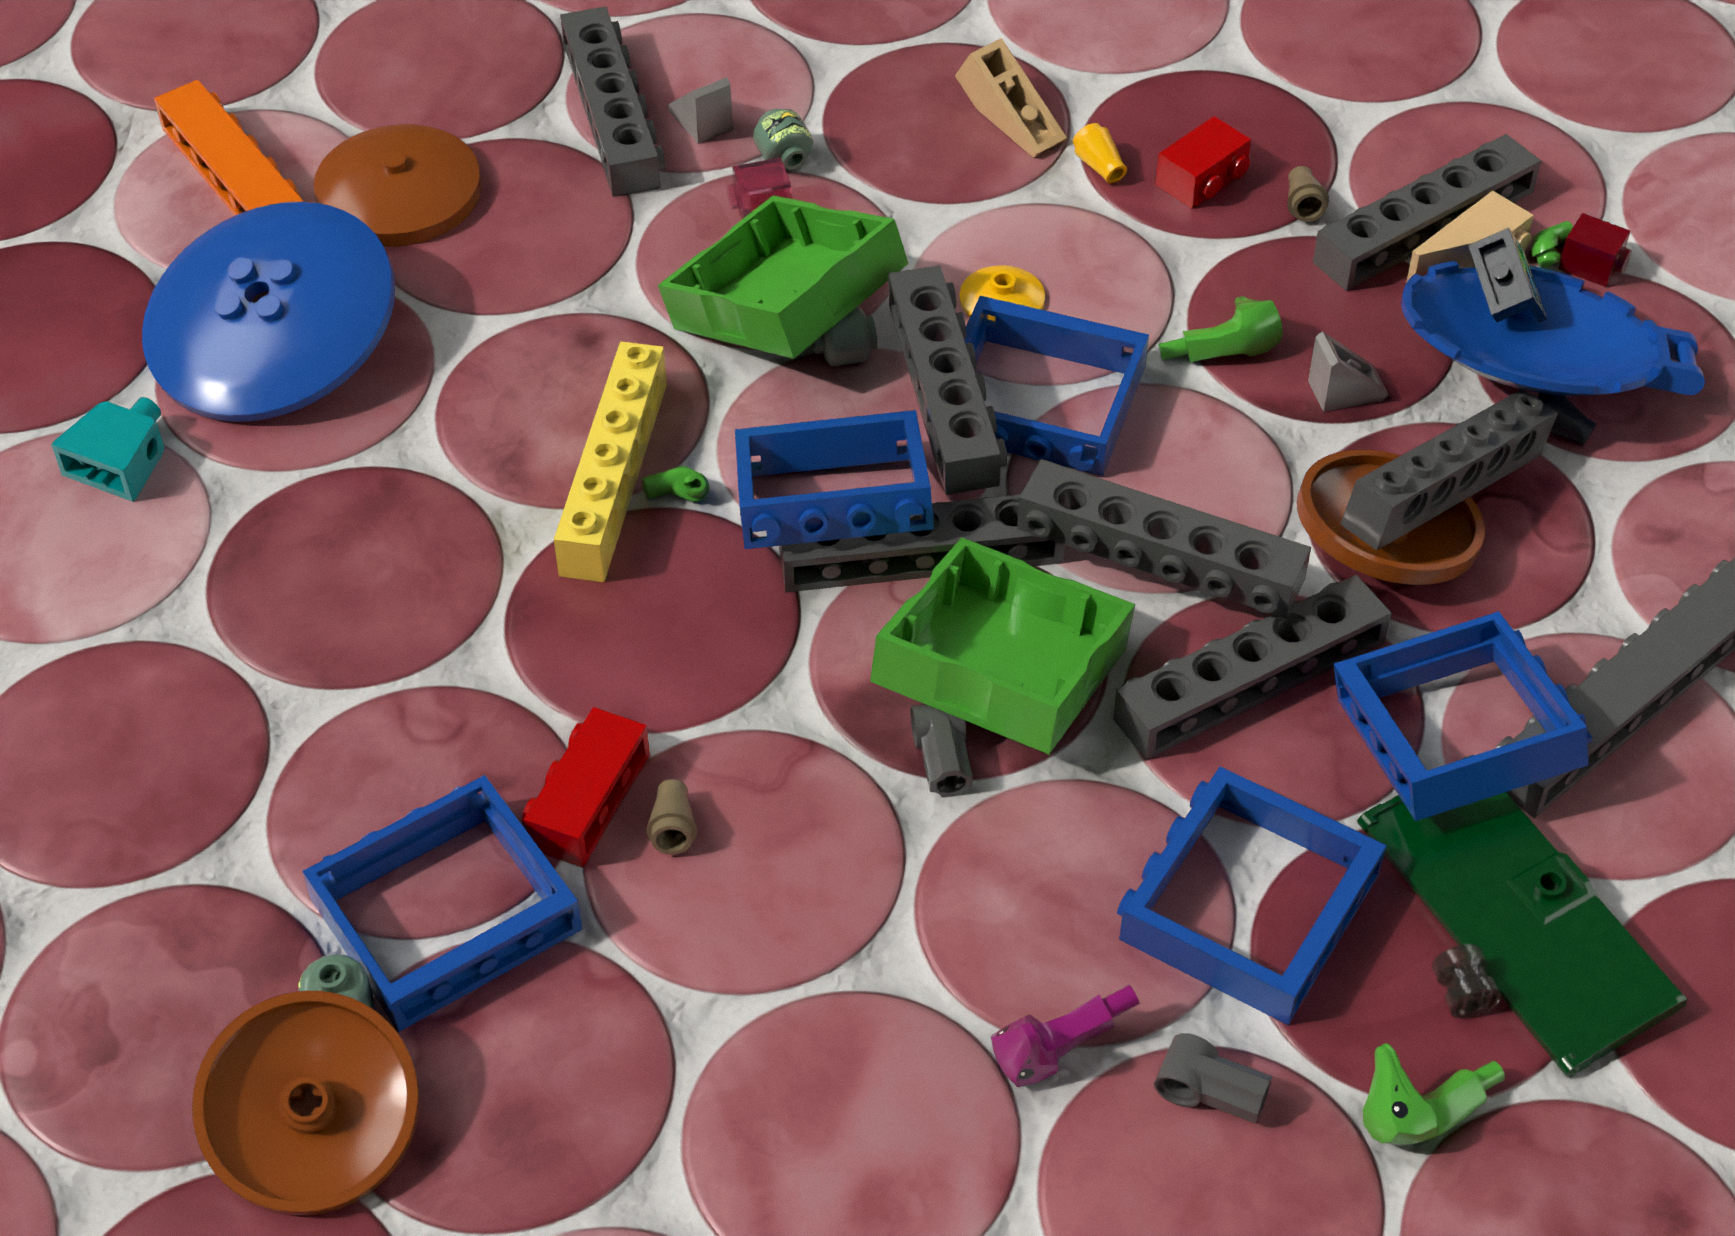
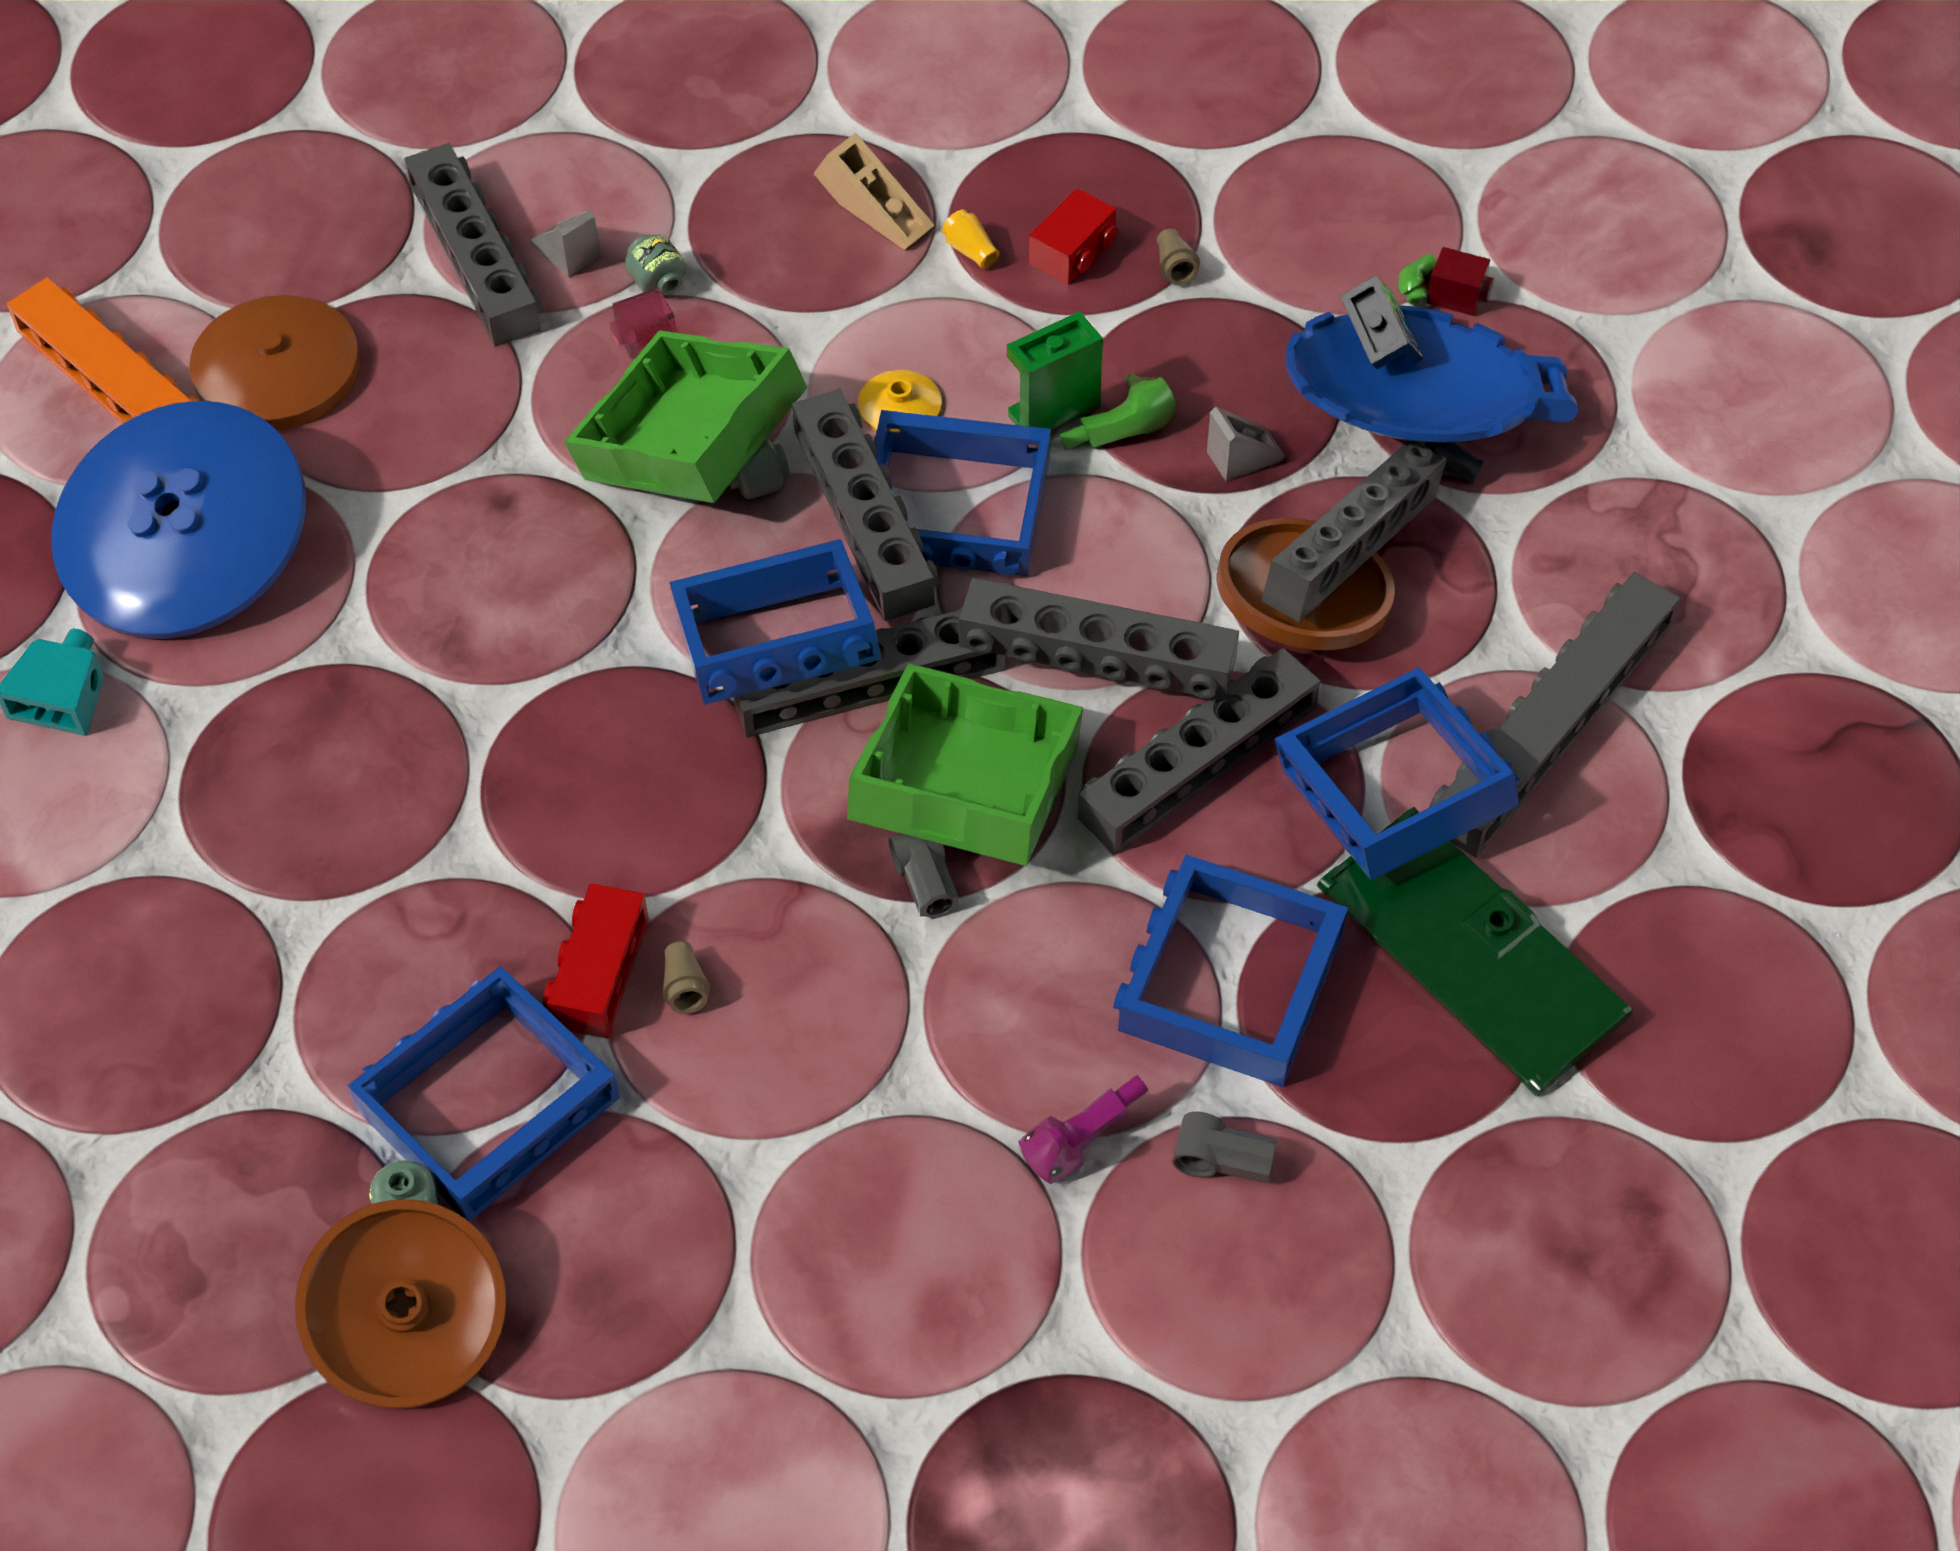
camera: 10 degrees left, 5 degrees up
(610, 462) = (553, 630): light yellow brick -> none
(677, 481) = (621, 640): bright green arm -> none
(1164, 280) = (1057, 373): none -> green panel
(1403, 1116) = (1397, 1156): bright green animal -> none
(1405, 218) = (1293, 261): dark grey brick -> none
(1465, 978) = (1438, 1026): clear smoke wheel -> none
(1481, 220) = (1349, 268): tan slope -> none

